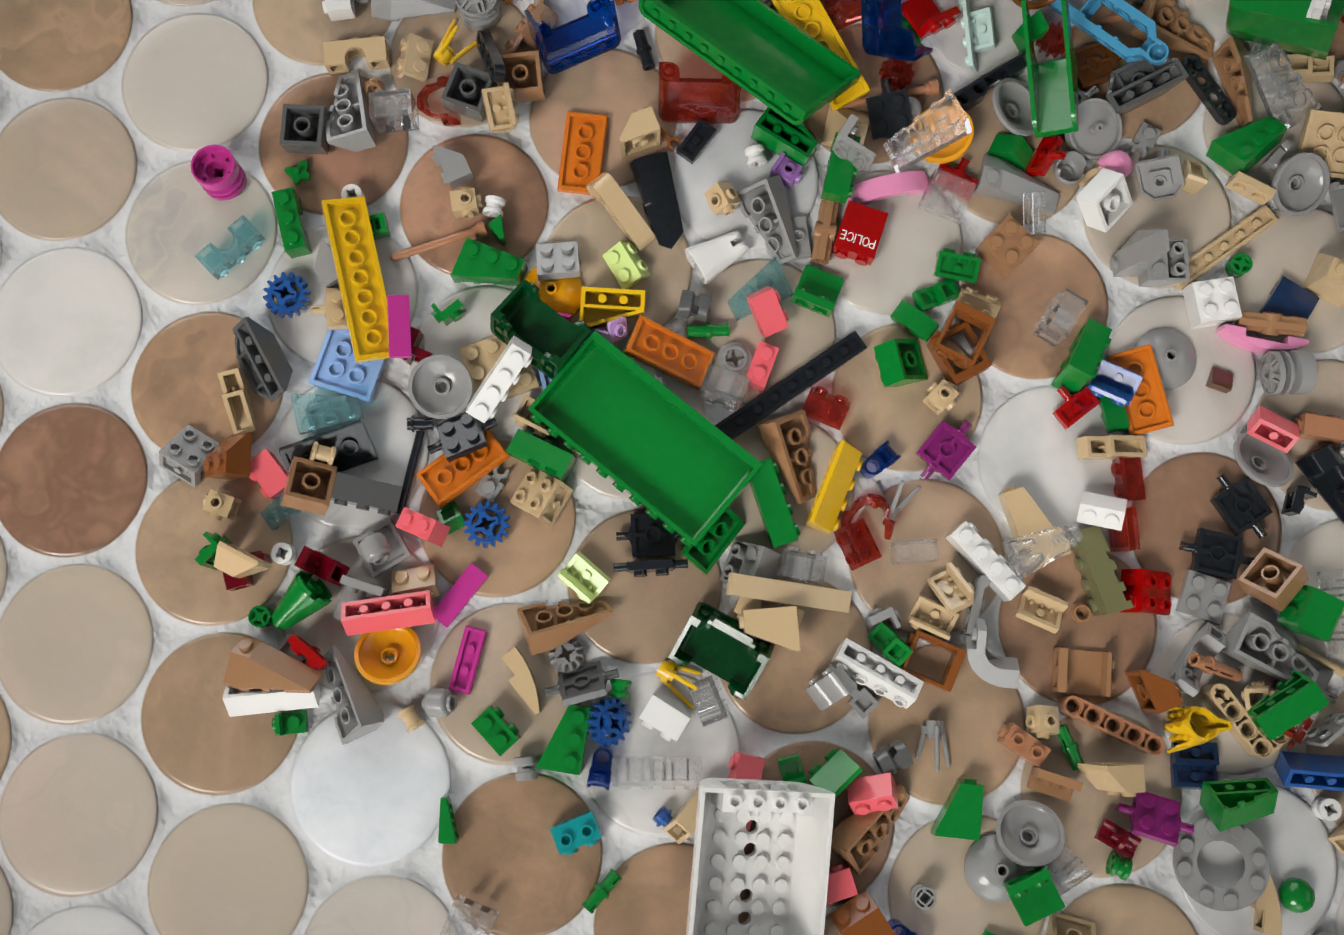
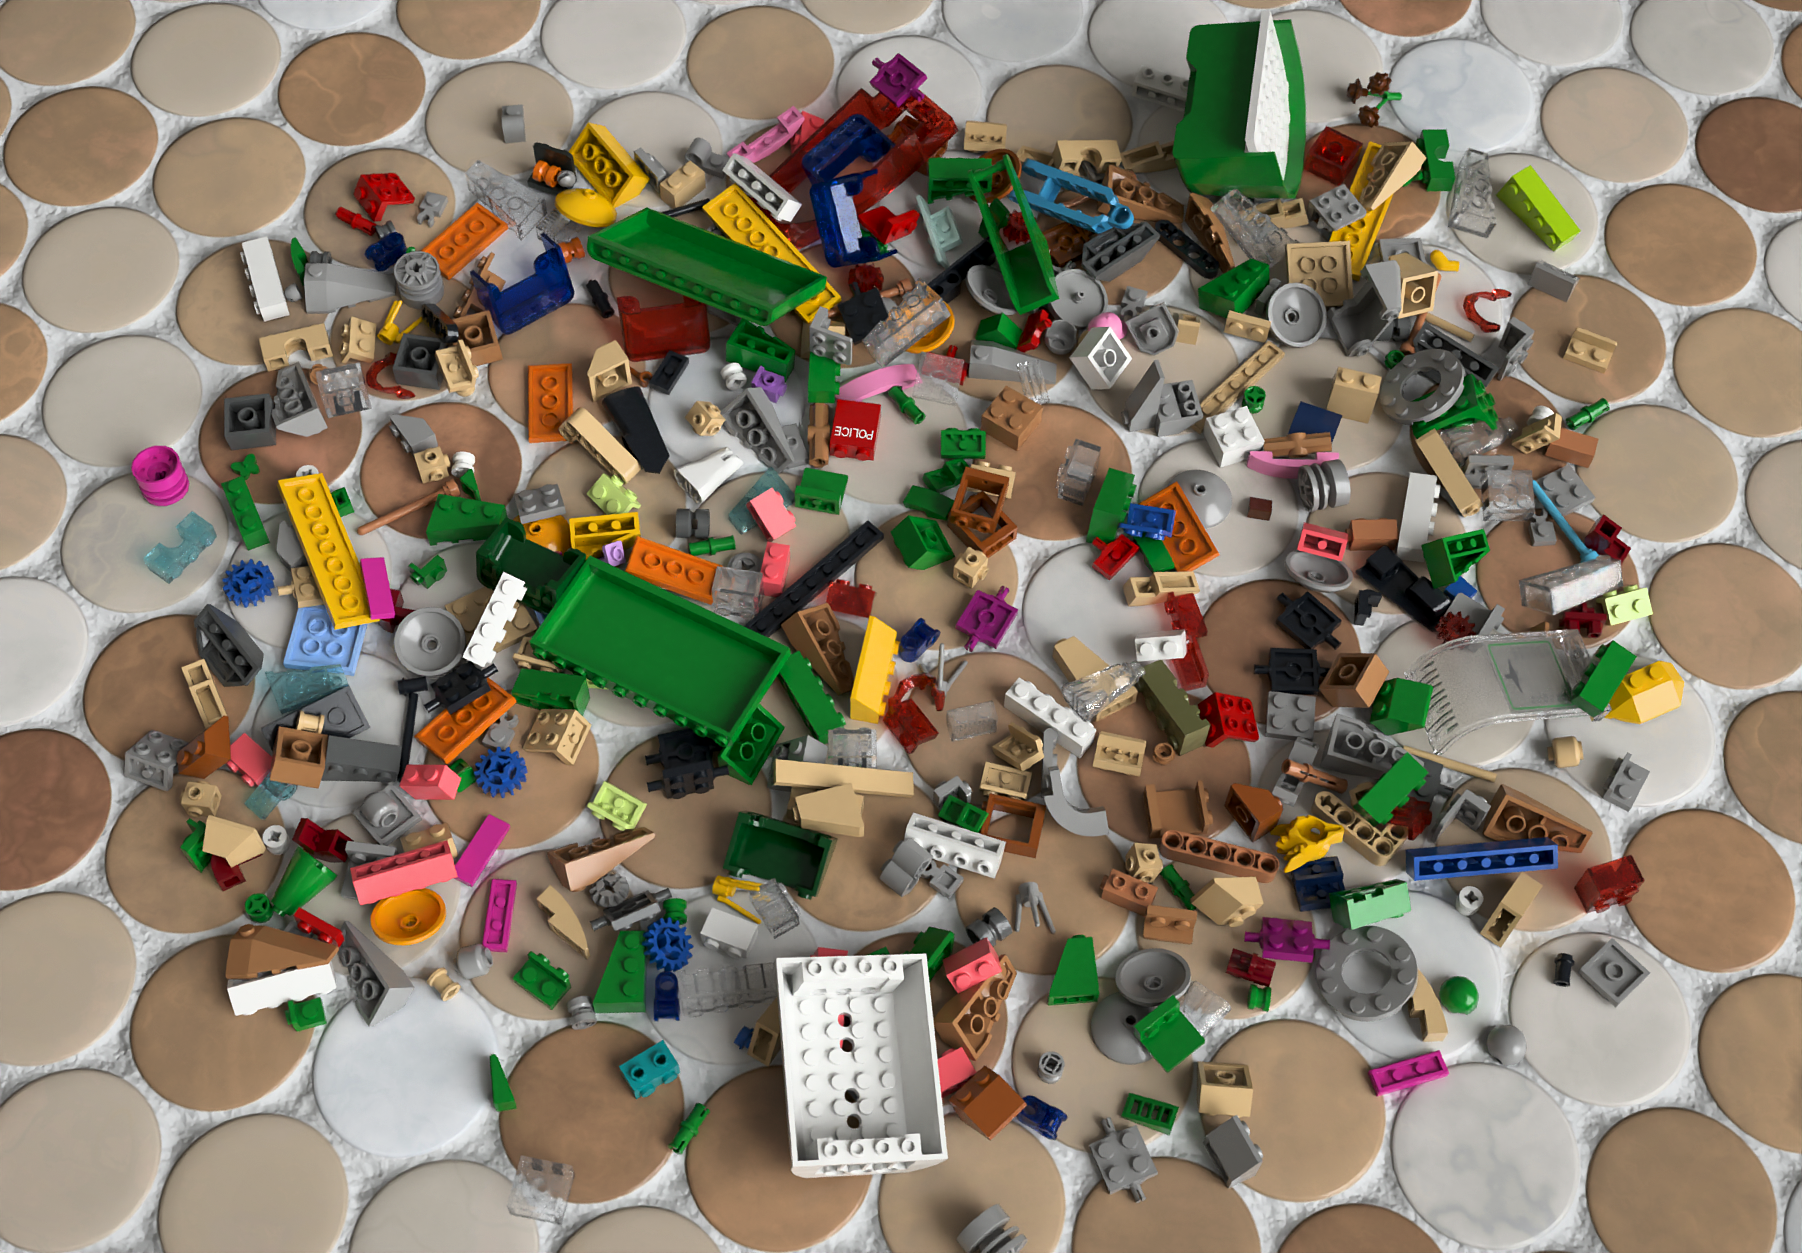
camera: 10 degrees left, 20 degrees down
(911, 214) = (907, 405): none -> green pin

